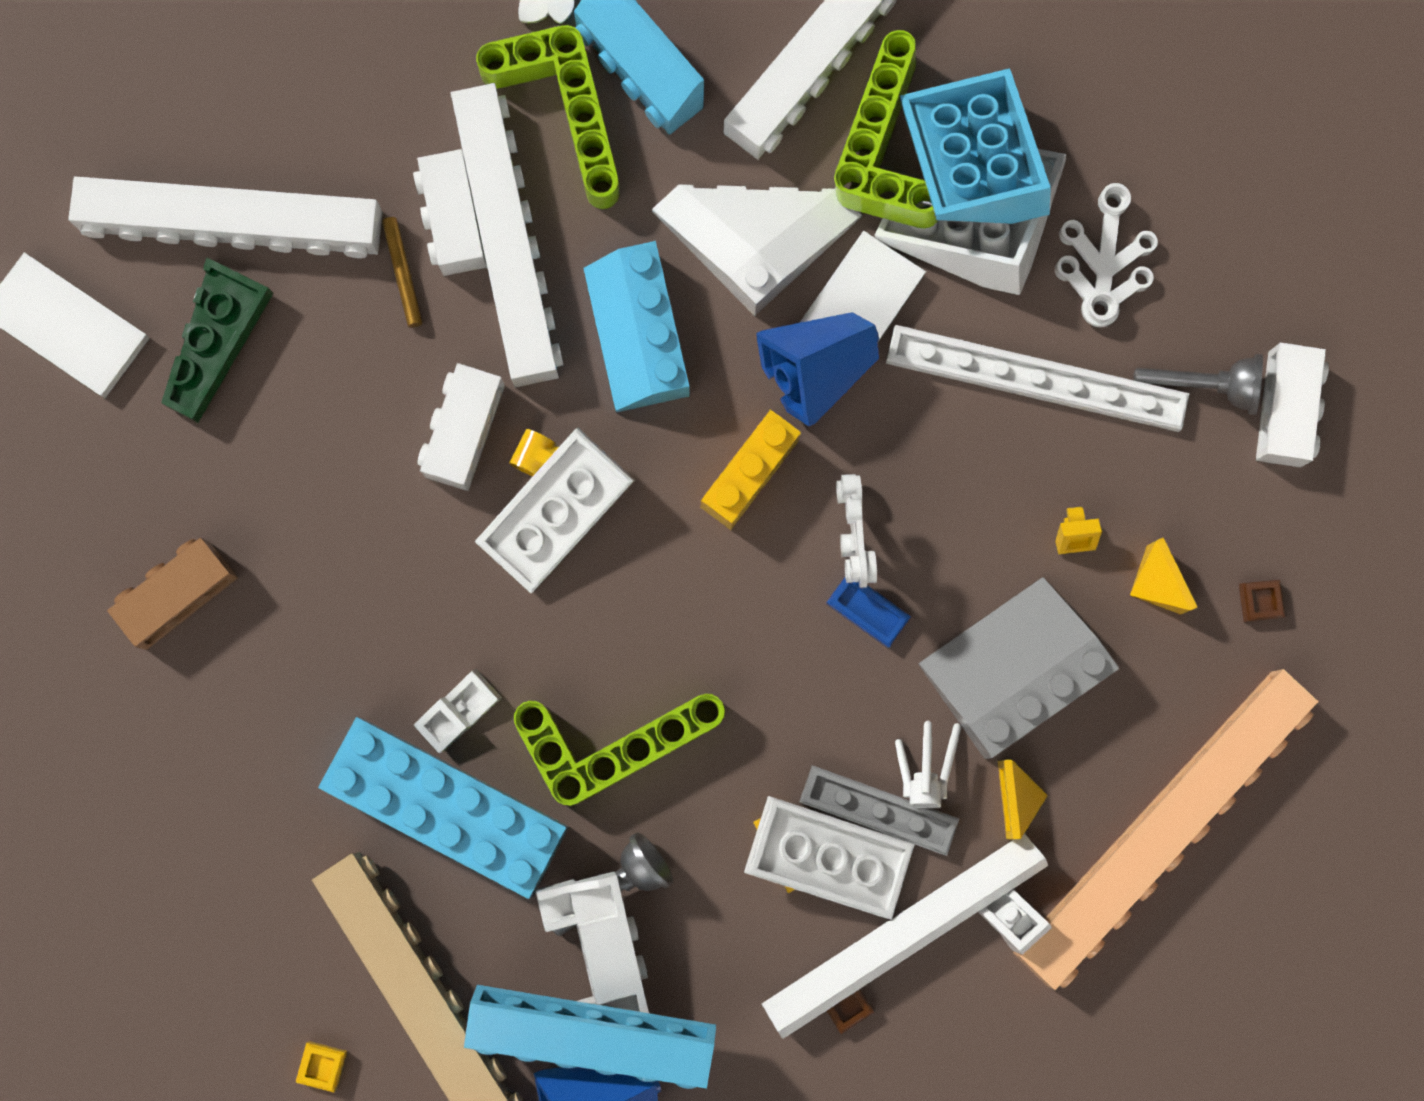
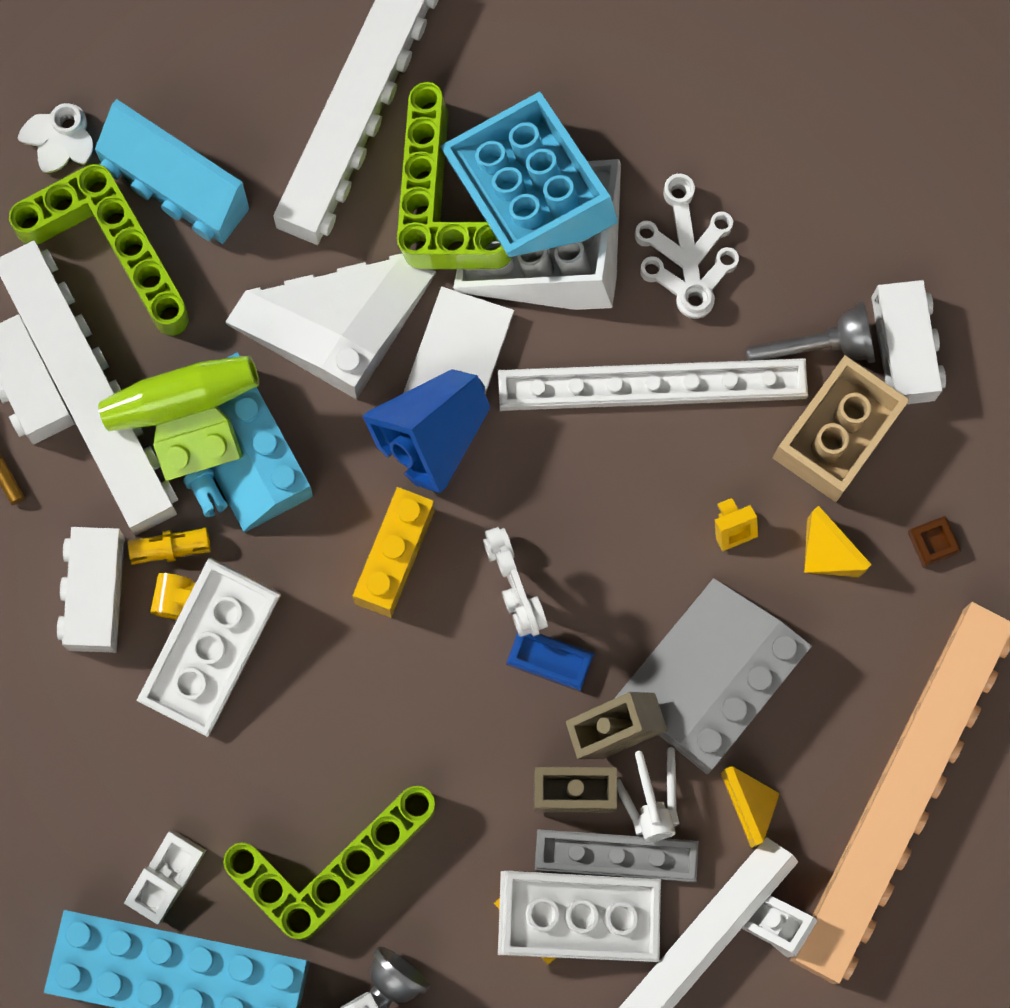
camera: 15 degrees left, 5 degrees down
(543, 405) = (169, 546): none -> yellow pin
(588, 349) = (205, 490): none -> medium azure pin
(591, 284) = (183, 407): none -> lime plate
(858, 739) = (575, 789): none -> dark tan brick
(913, 691) = (616, 725): none -> dark tan brick
(1205, 470) = (840, 428): none -> tan brick

